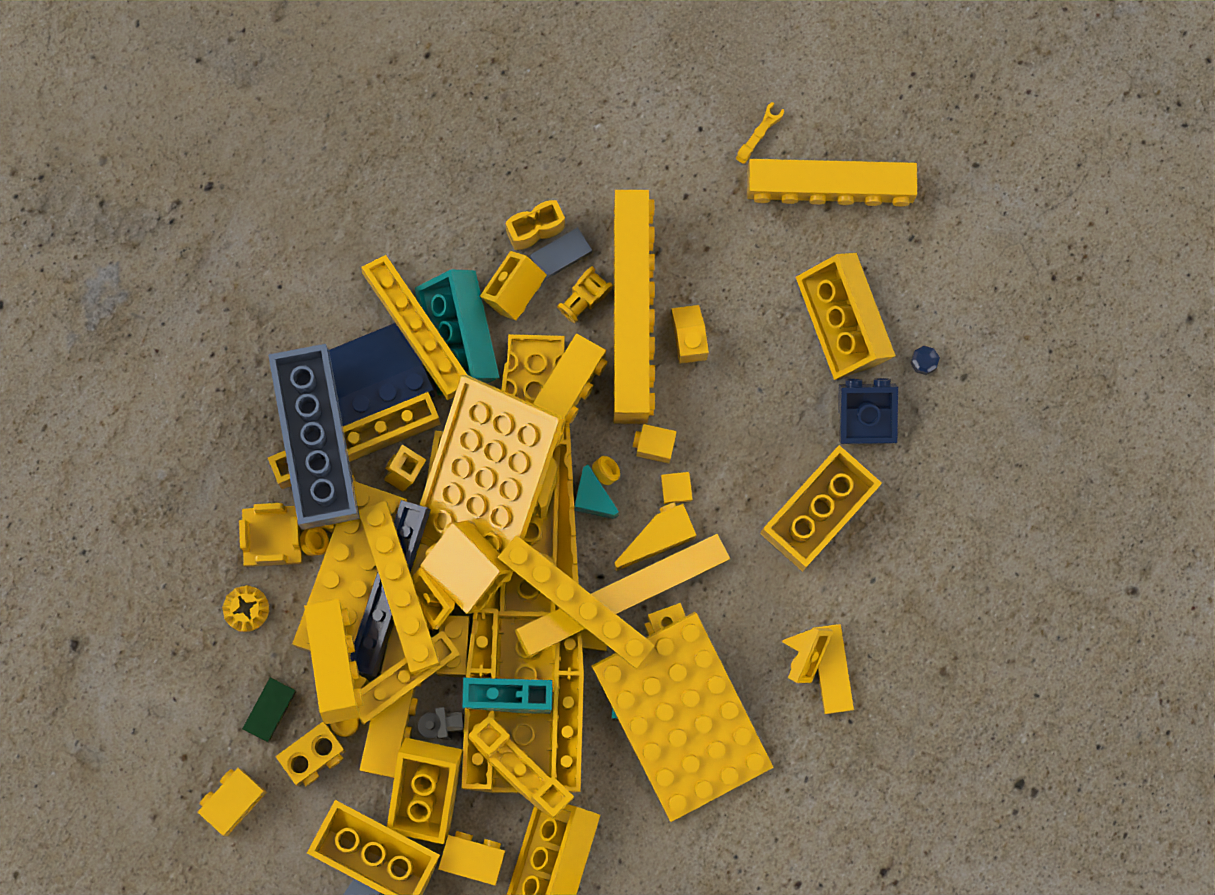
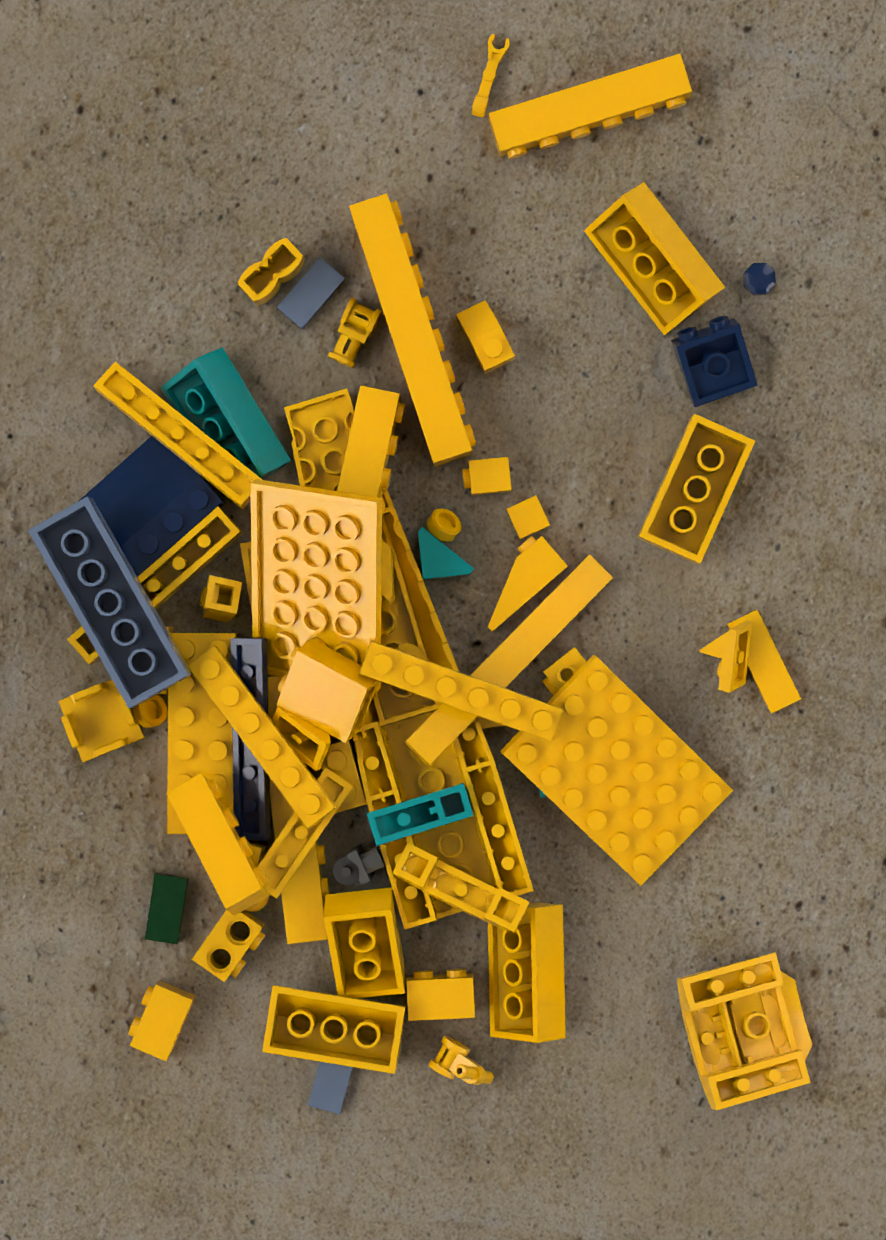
camera: 15 degrees left, 10 degrees up
(259, 611) = (117, 807): yellow gear -> none
(513, 285) = (270, 350): yellow brick -> none

